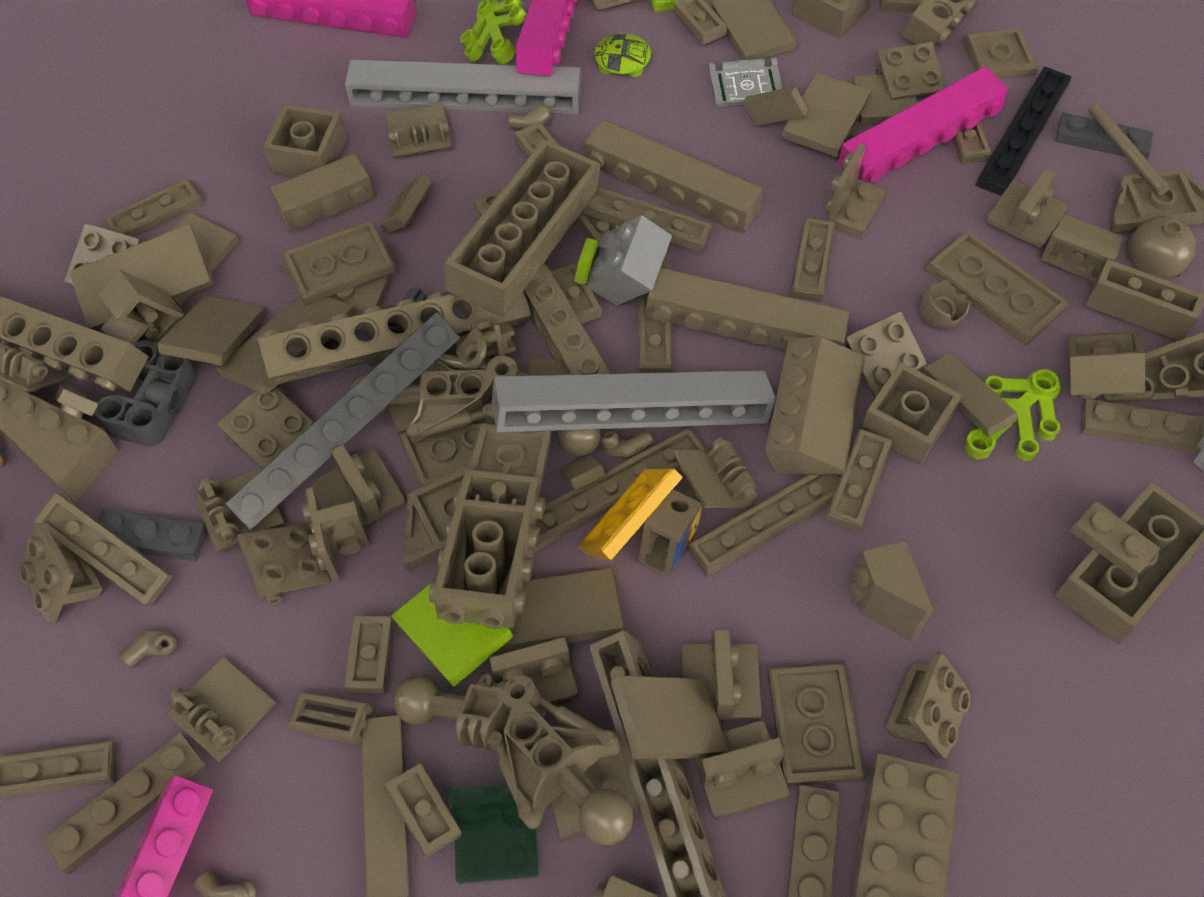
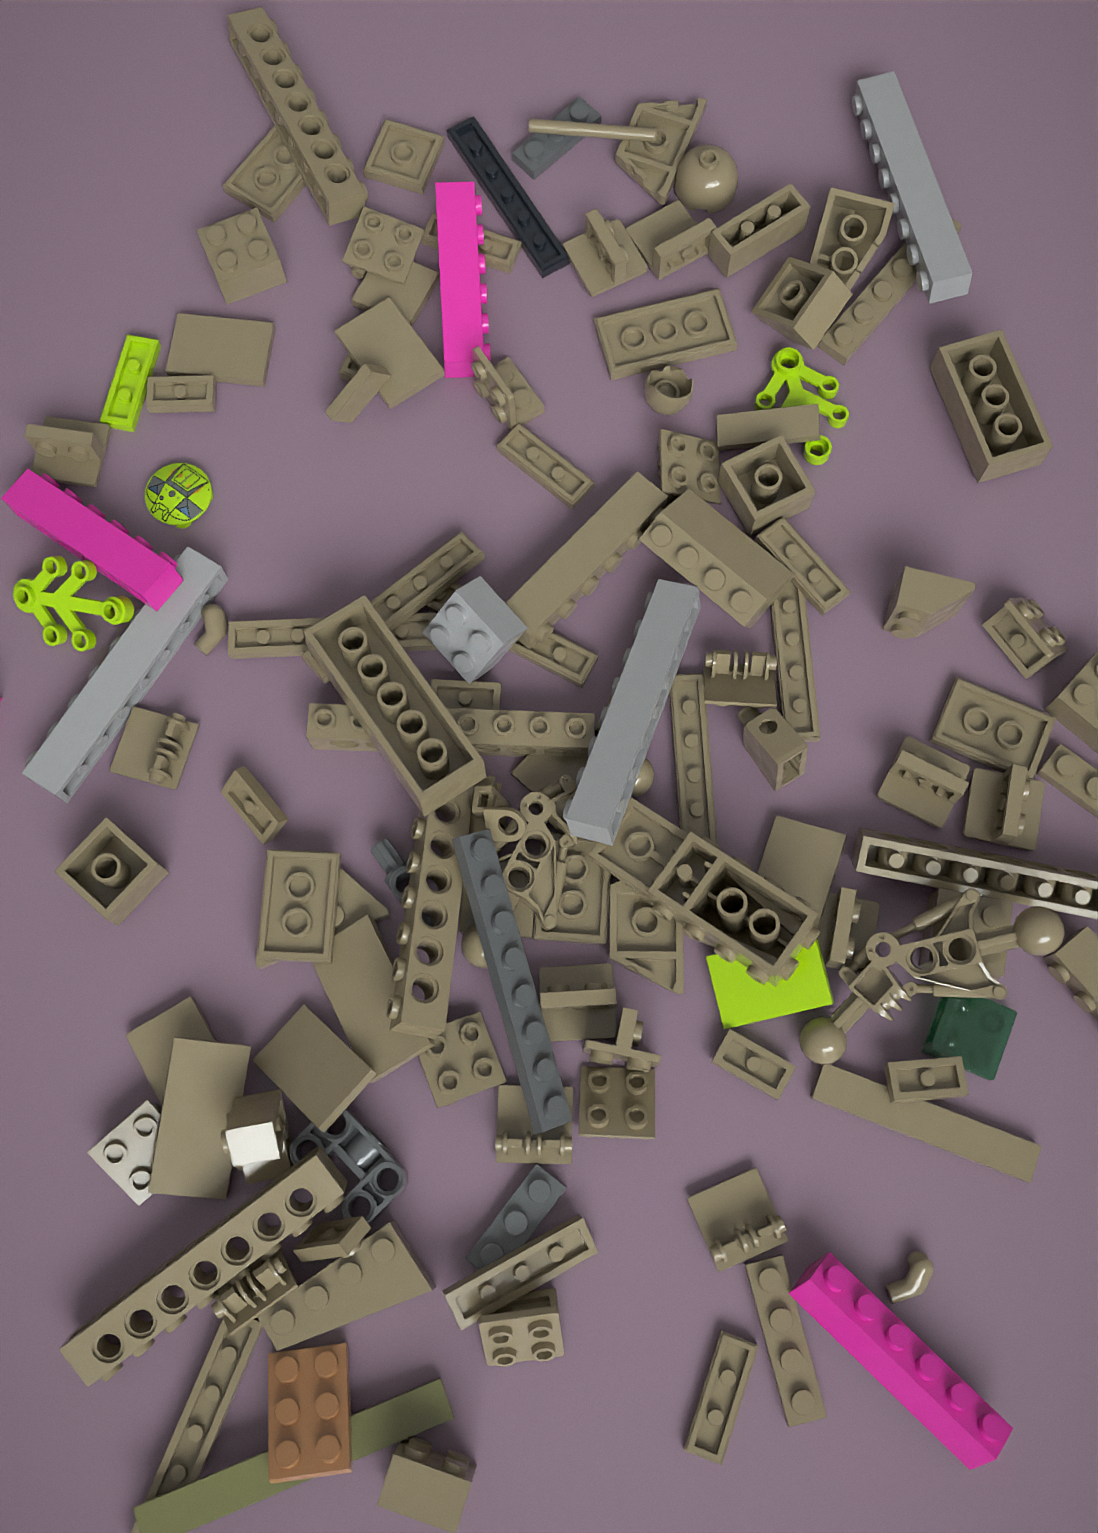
camera: 60 degrees left, 15 degrees up
(149, 644) = (638, 1261): dark tan arm -> none
(154, 209) = (94, 1074): dark tan tile -> none
(322, 192) = (189, 883): dark tan brick -> none
(356, 724) = (818, 1101): dark tan tile -> none
(582, 472) = (668, 792): dark tan tile -> none
(585, 261) = (446, 668): lime tile -> none
(625, 448) = (661, 740): dark tan arm -> none
(629, 513) = (745, 772): yellow tile -> none
(668, 717) = (958, 840): dark tan tile -> none
(674, 176) = (376, 534): dark tan brick -> none
(743, 79) = (291, 400): light grey piece -> none
(1115, 540) = (978, 409): dark tan plate -> none

